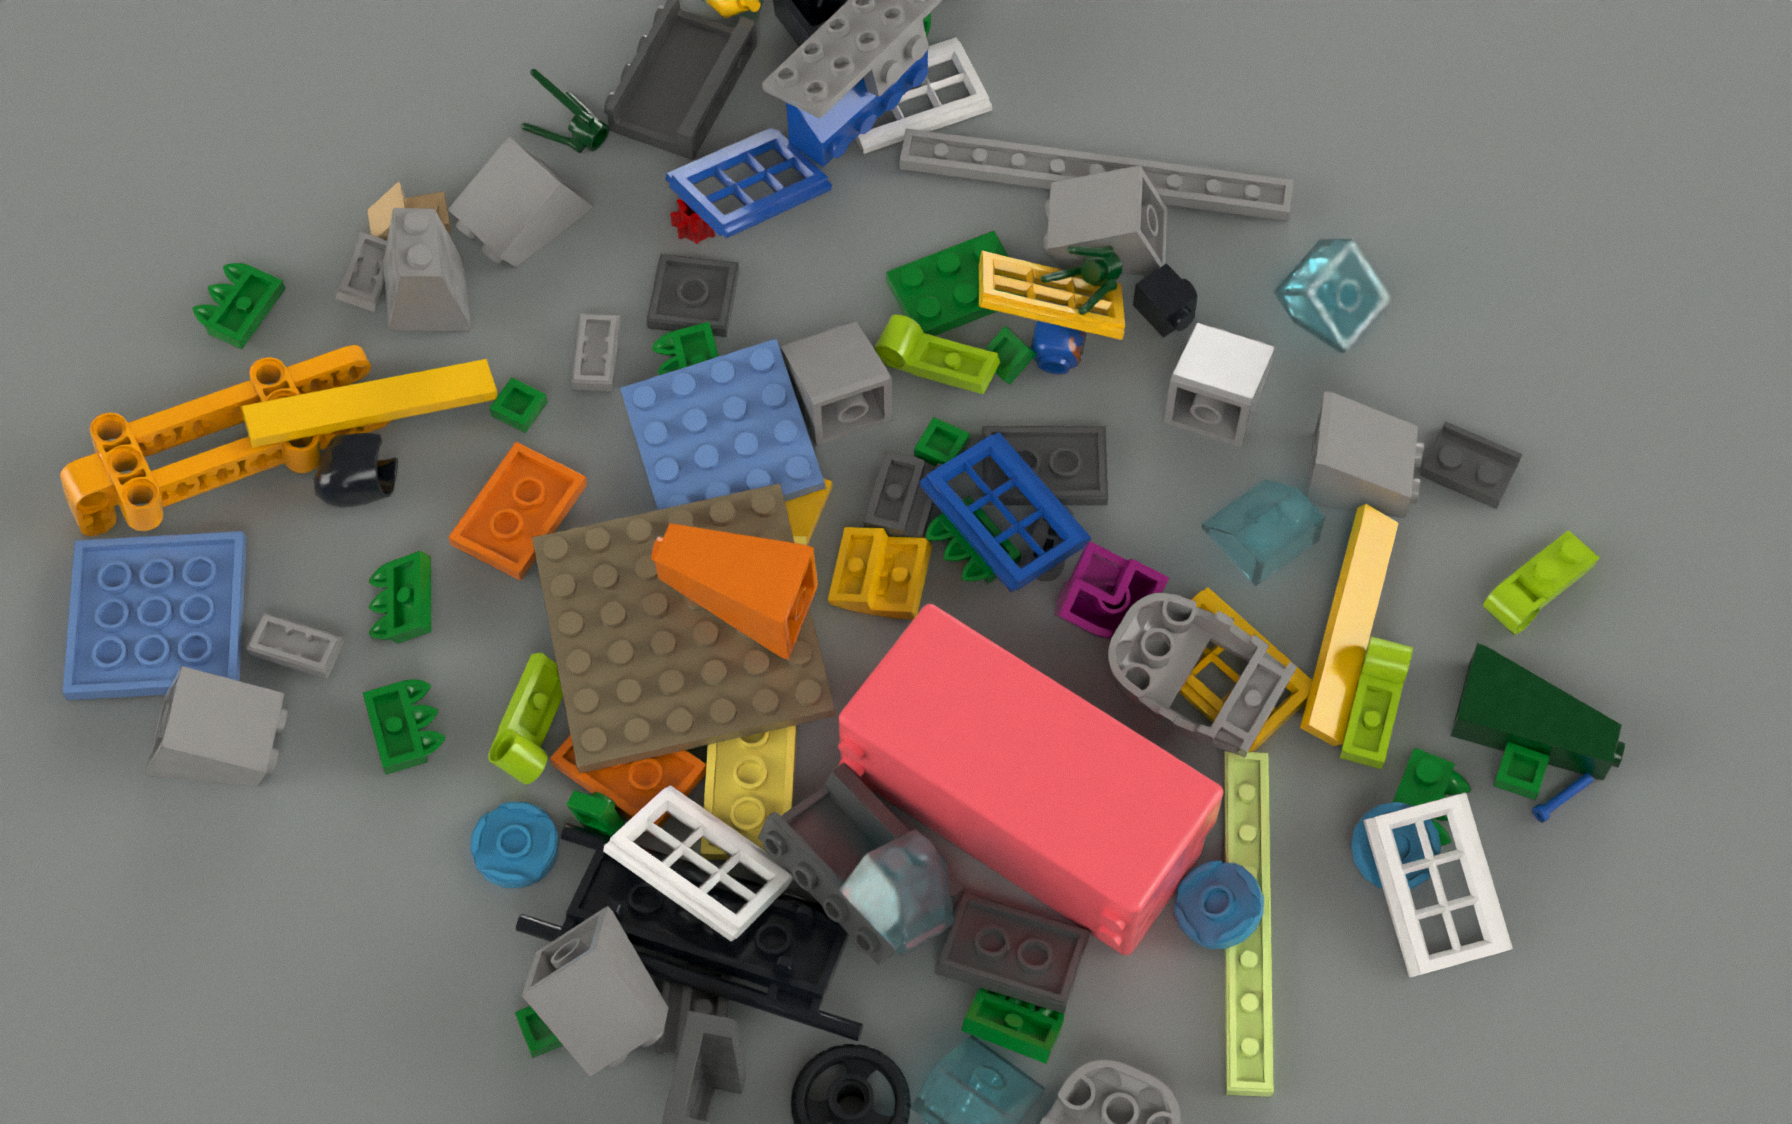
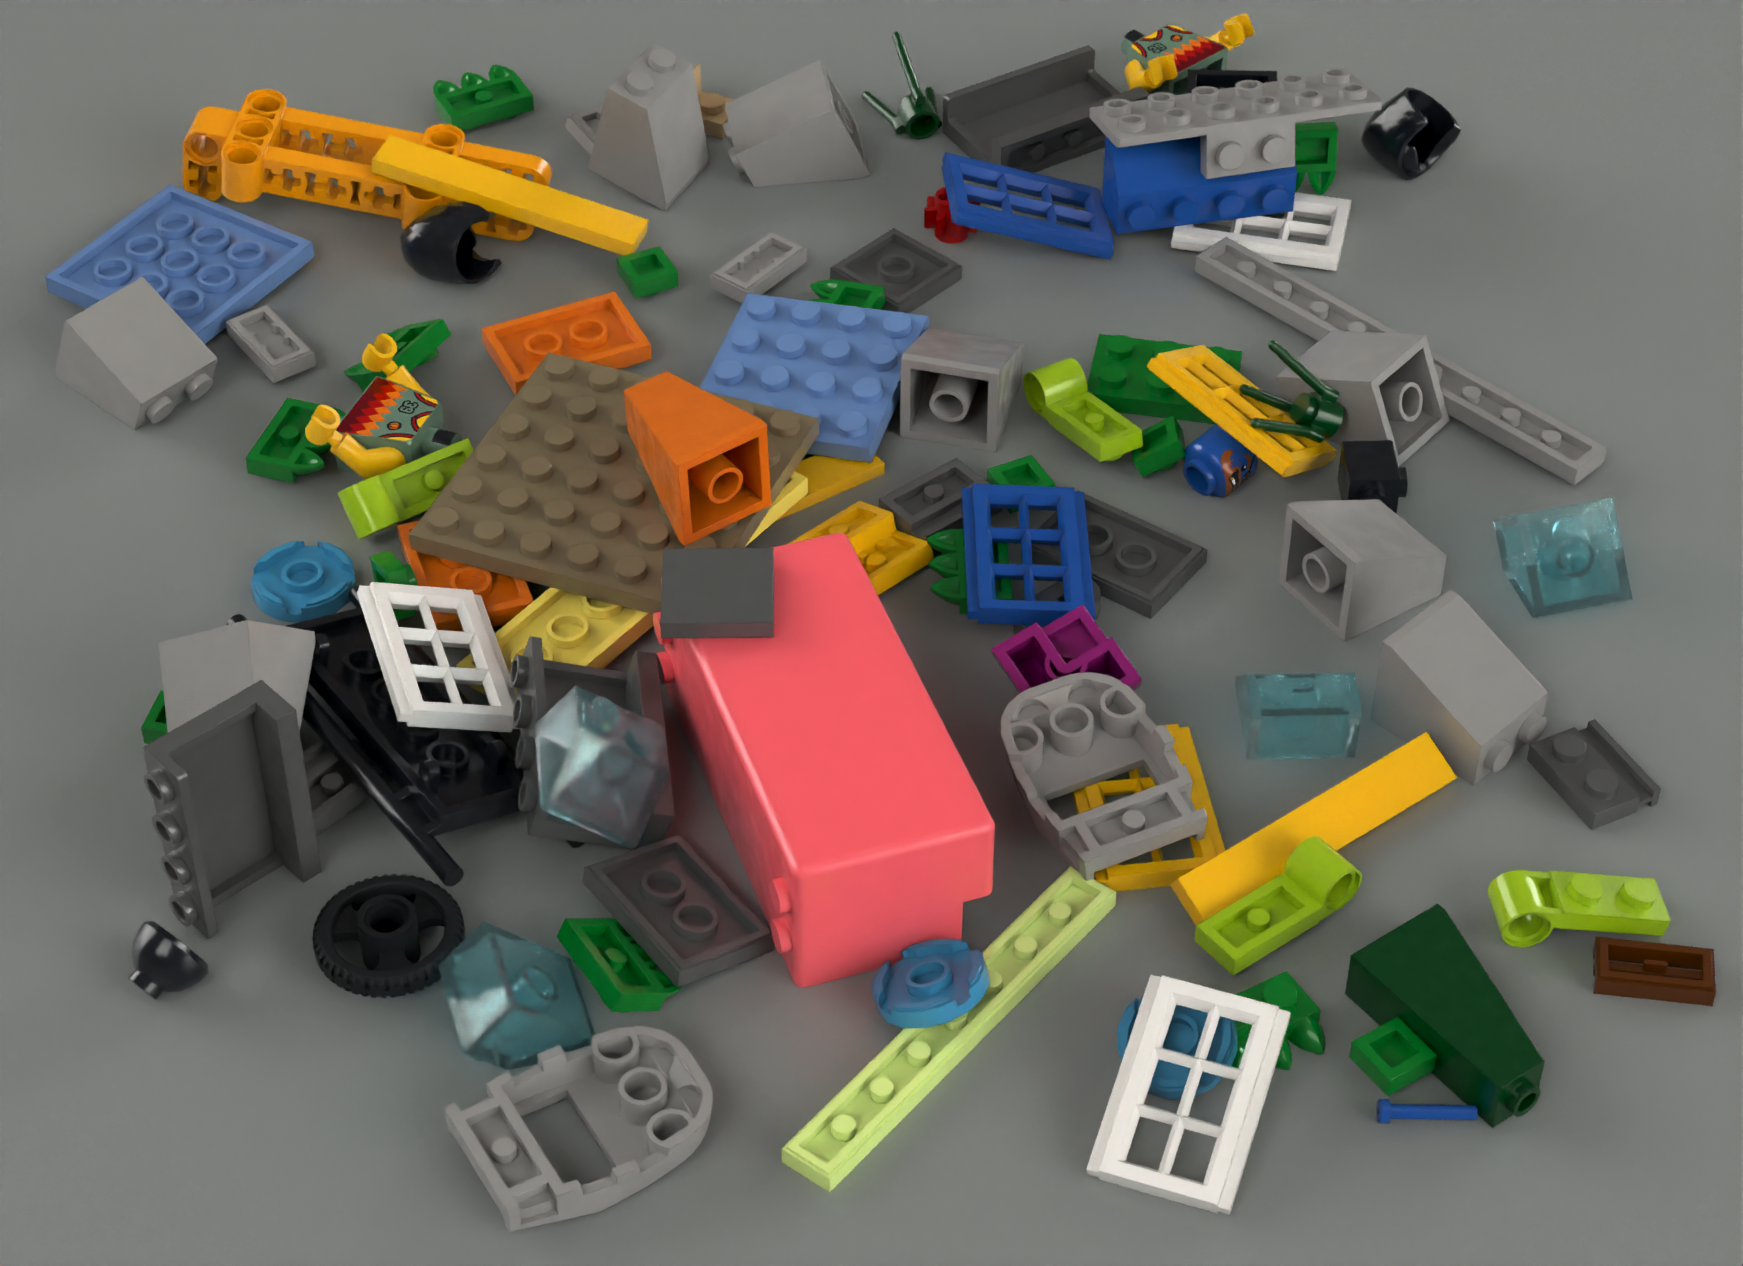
camera: 35 degrees right, 20 degrees down
(463, 669) = (388, 422): none -> torso
(899, 715) = (717, 593): none -> dark grey tile
(1584, 616) = (1654, 978): none -> reddish brown tile

